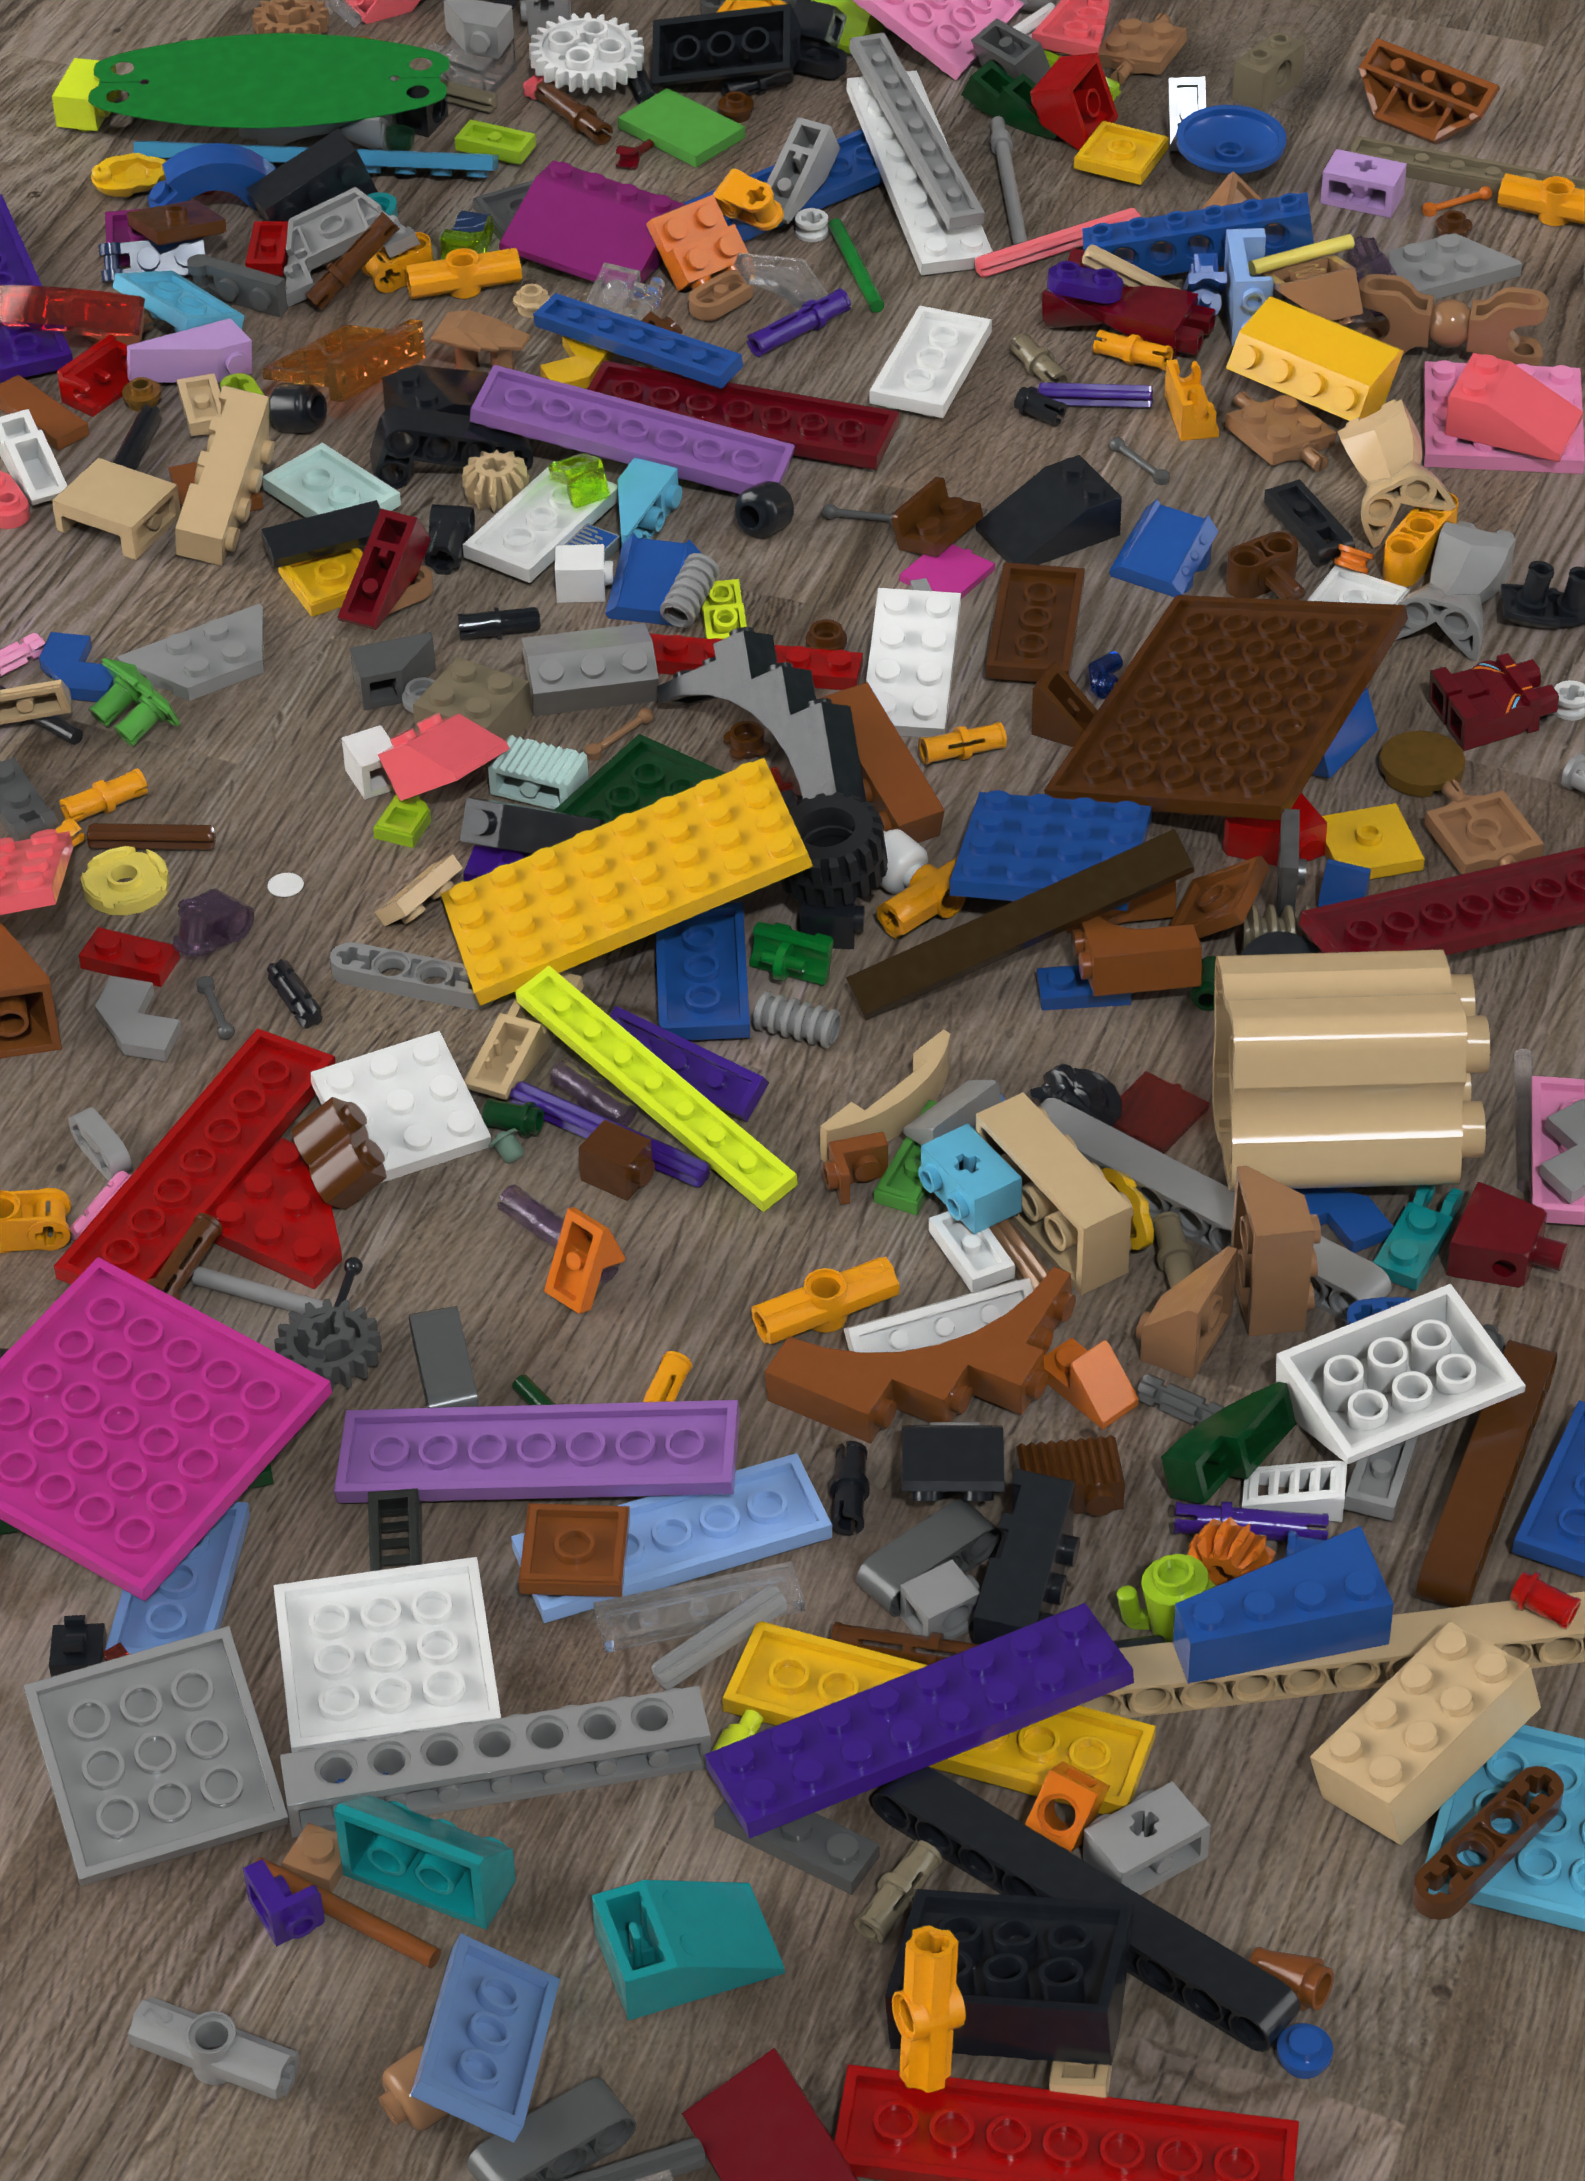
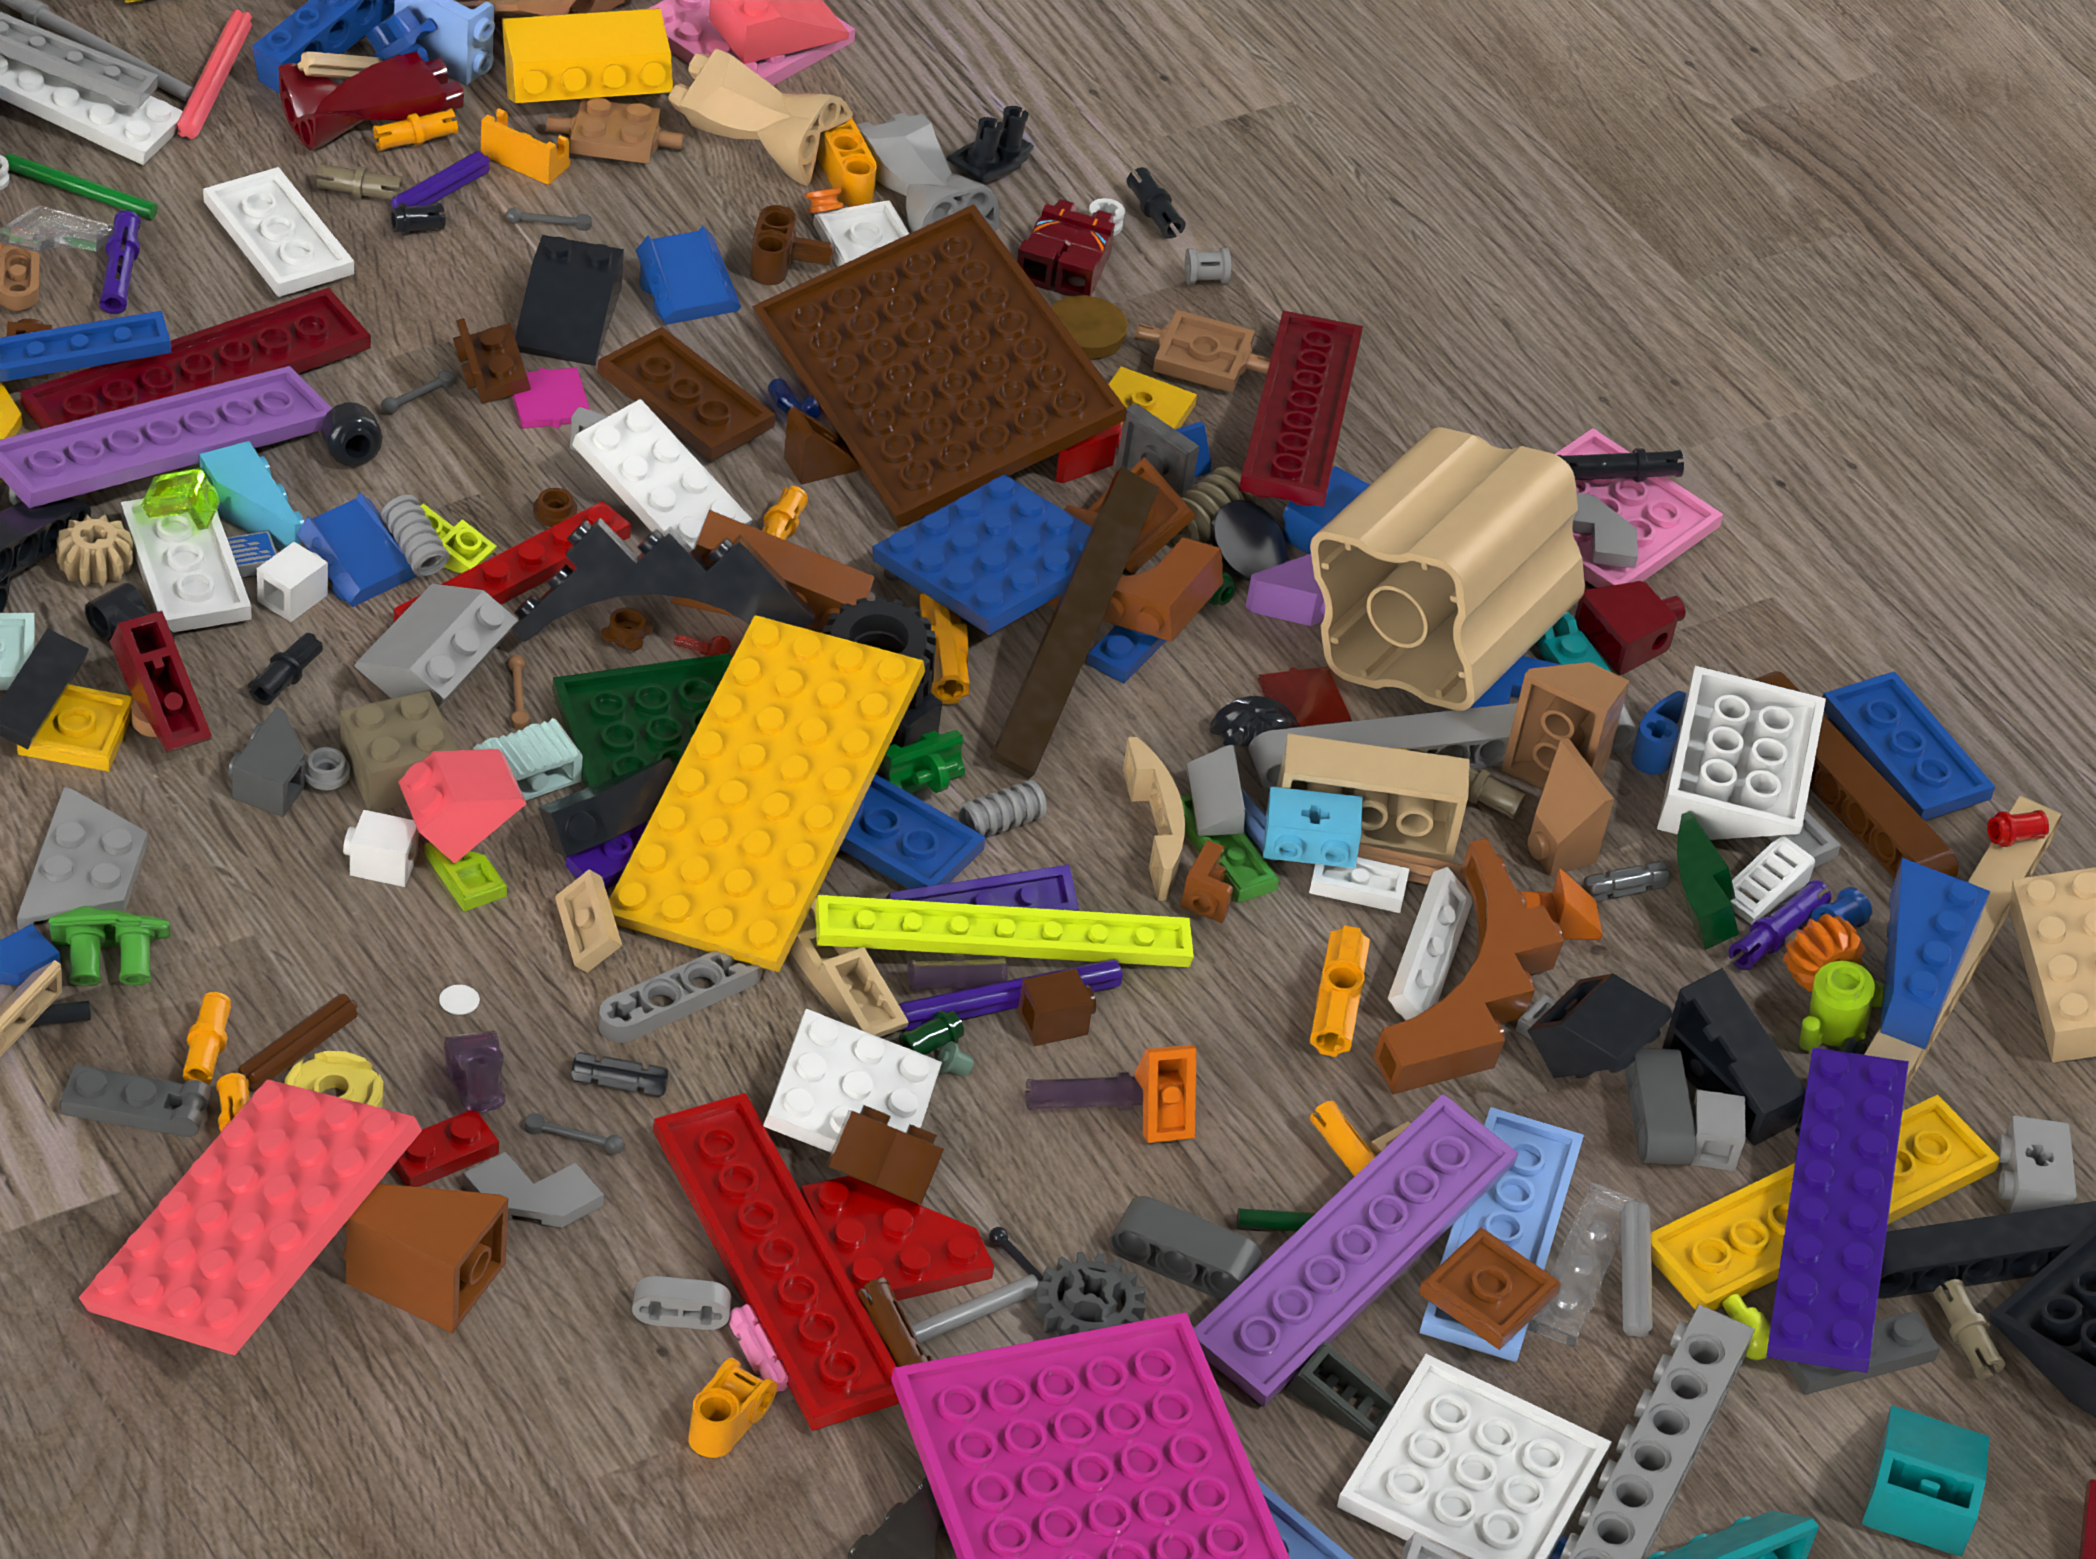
camera: 60 degrees left, 0 degrees up
(849, 1488) = (1544, 1102): black pin -> none
(857, 1634) = (1752, 1166): reddish brown pin -> none
(1080, 1790) = (1983, 1184): orange brick -> none
(1085, 283) = (325, 91): dark purple plate -> none
(1089, 1463) = (1662, 968): reddish brown brick -> none
(1308, 521) = (745, 188): black plate -> none

